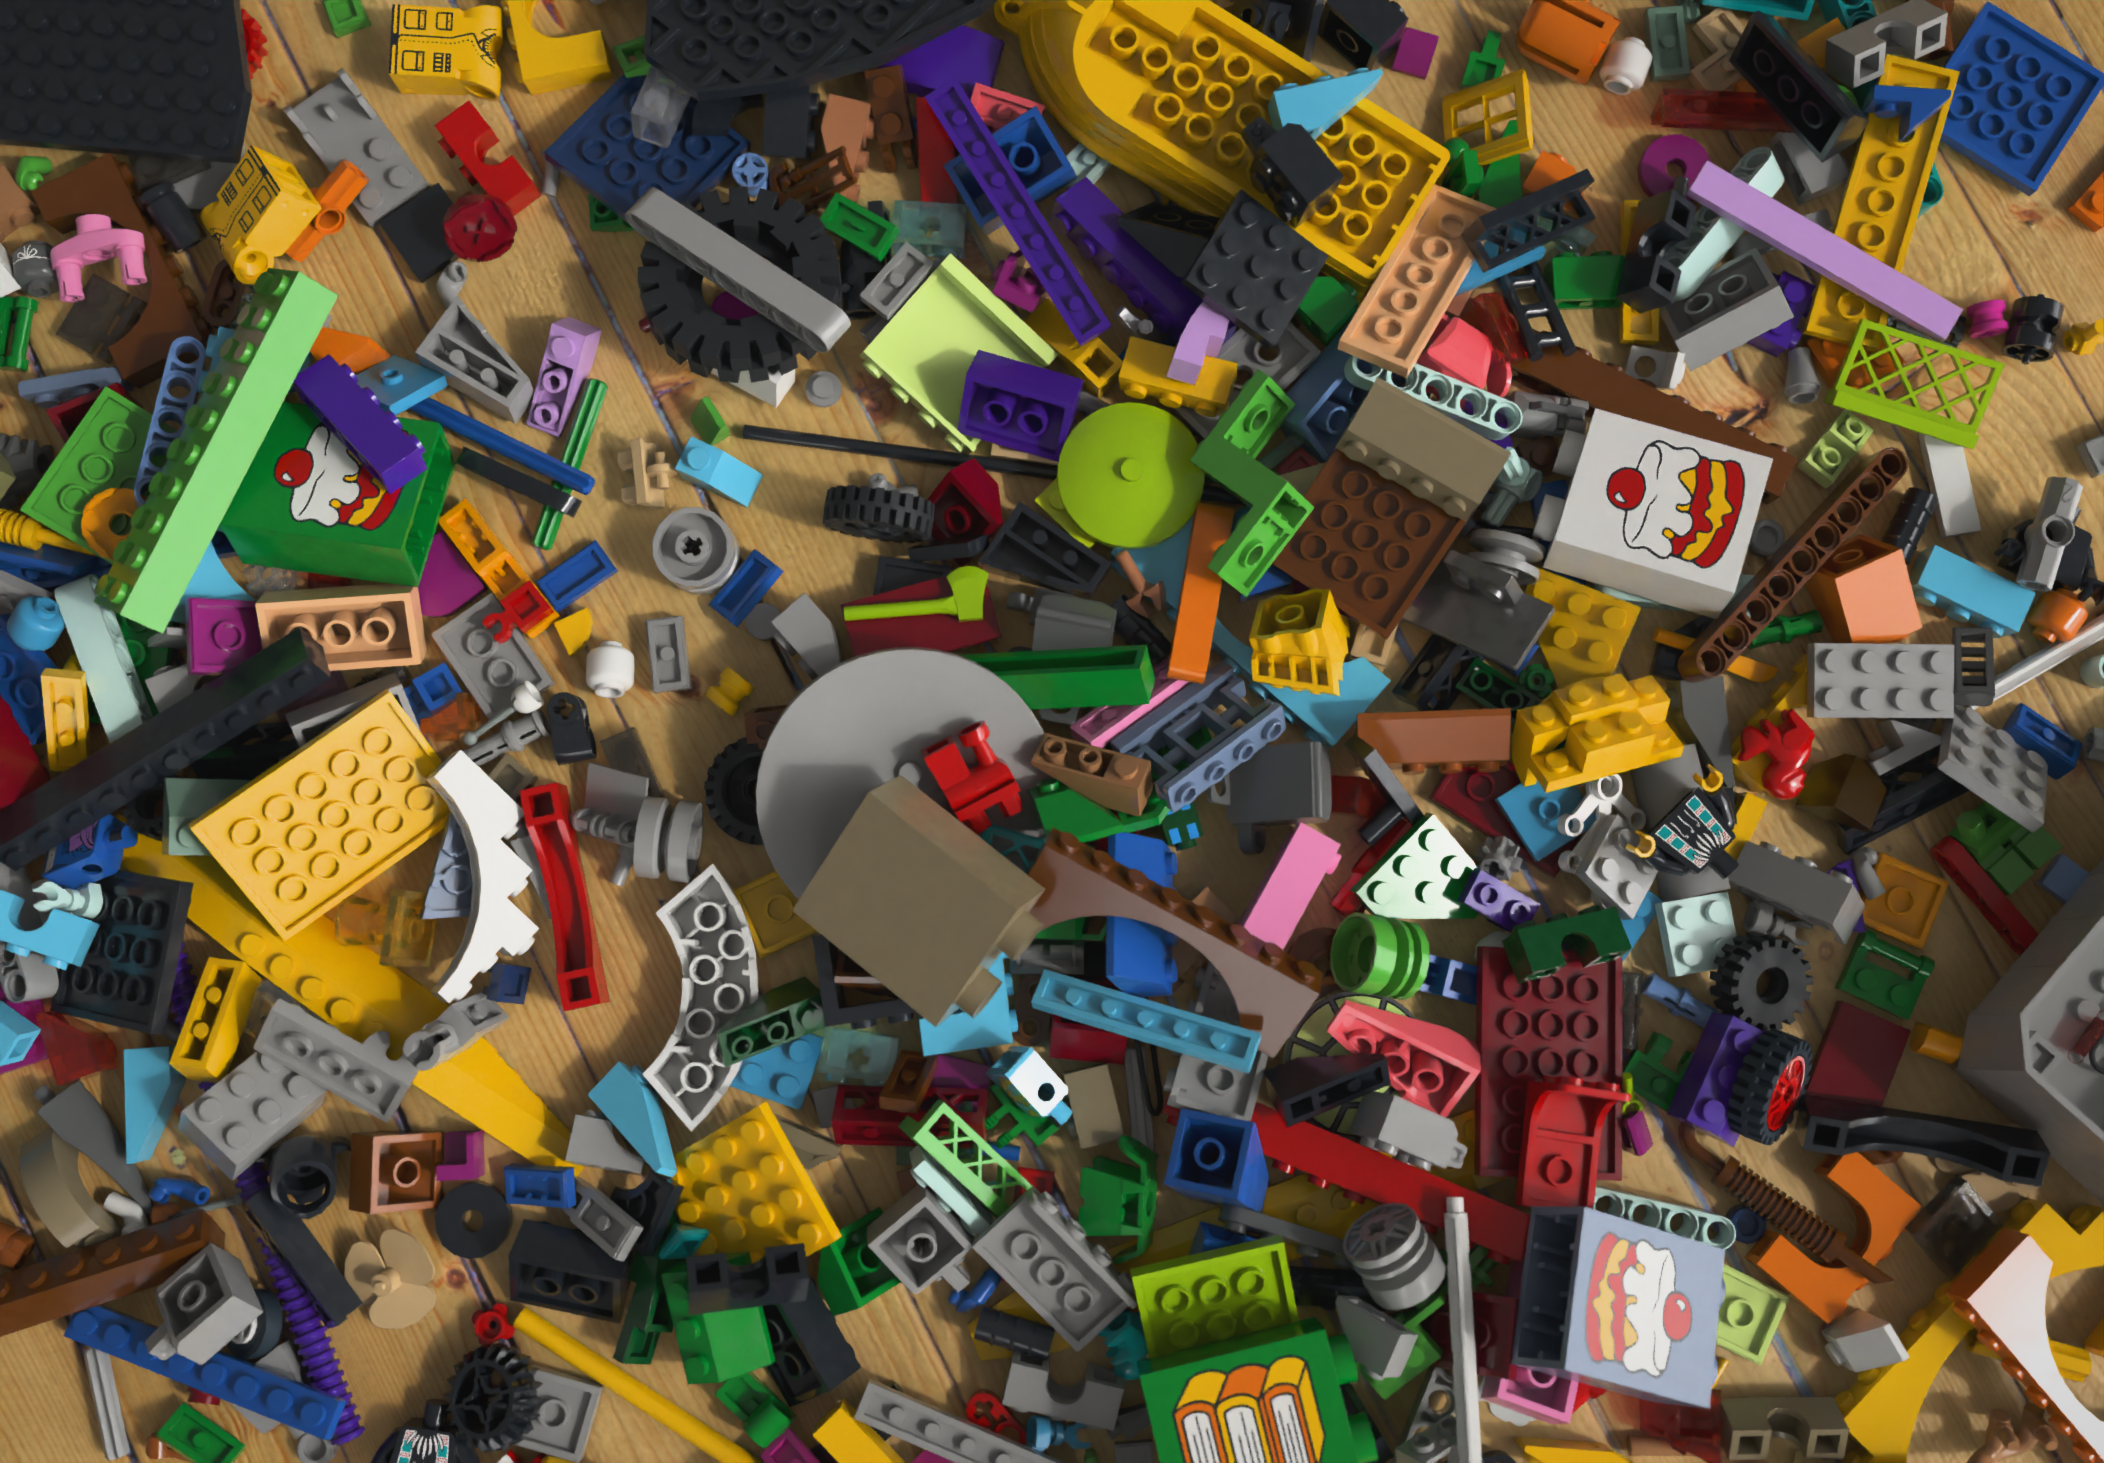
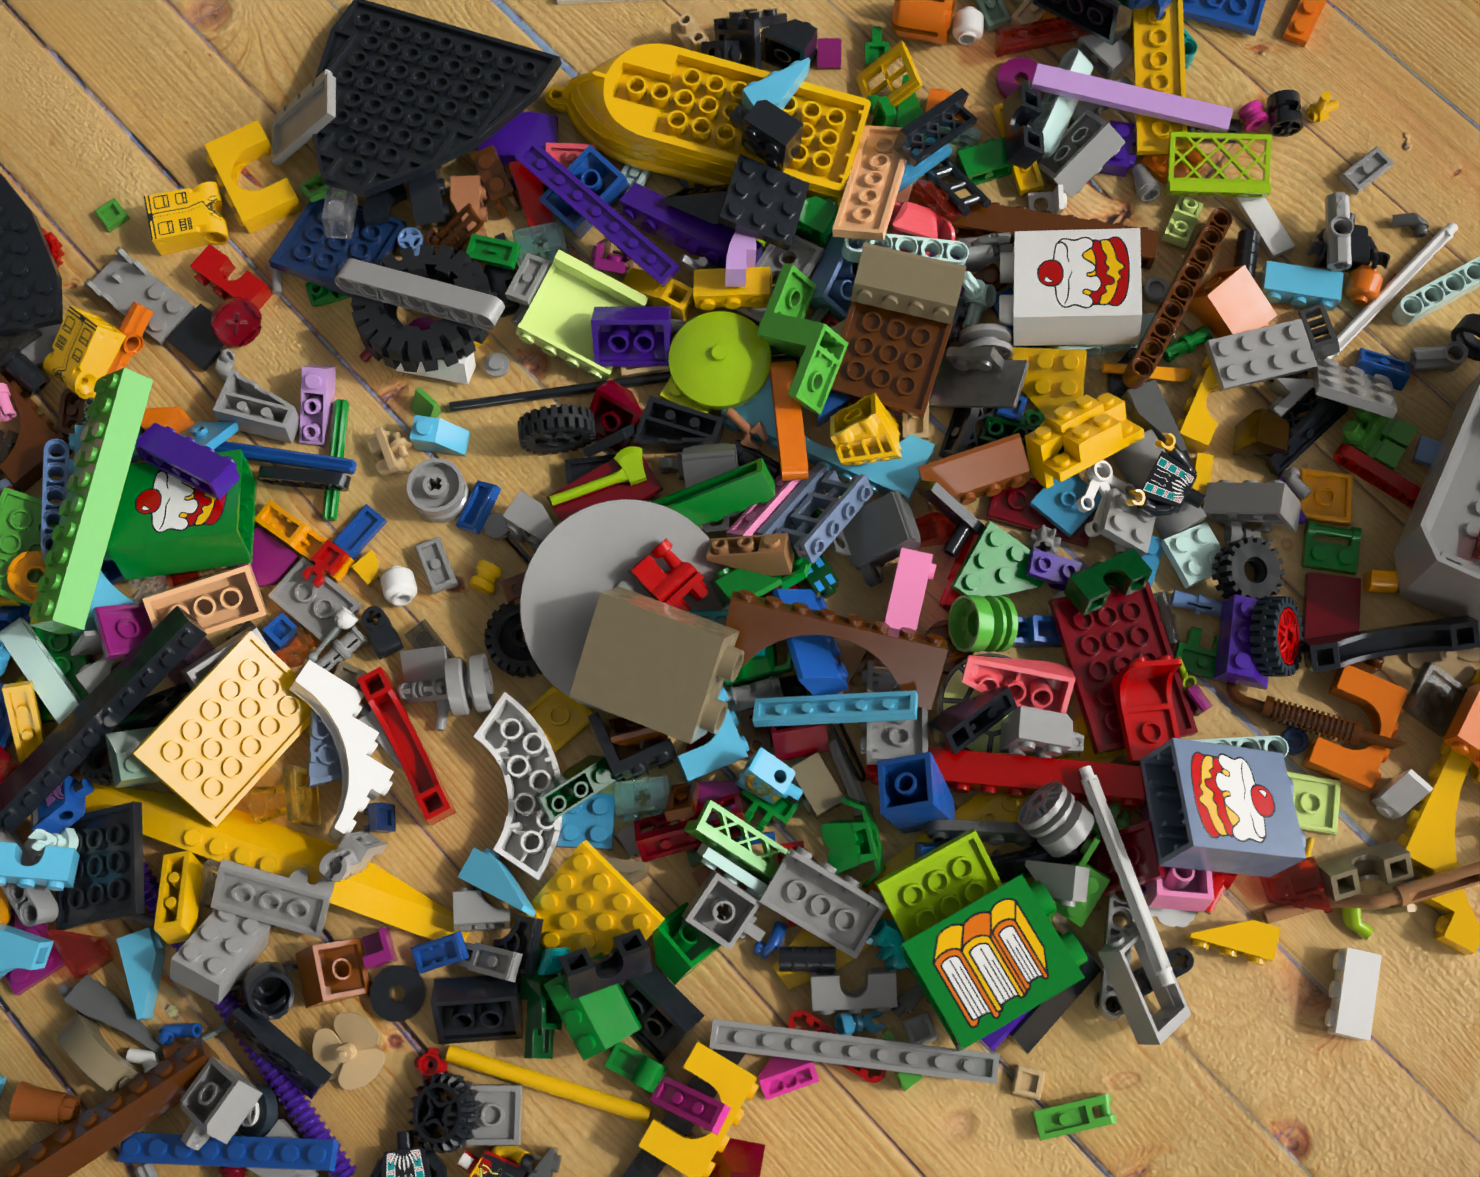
camera: 10 degrees left, 10 degrees down
(1786, 747) = (1211, 411): red animal -> none

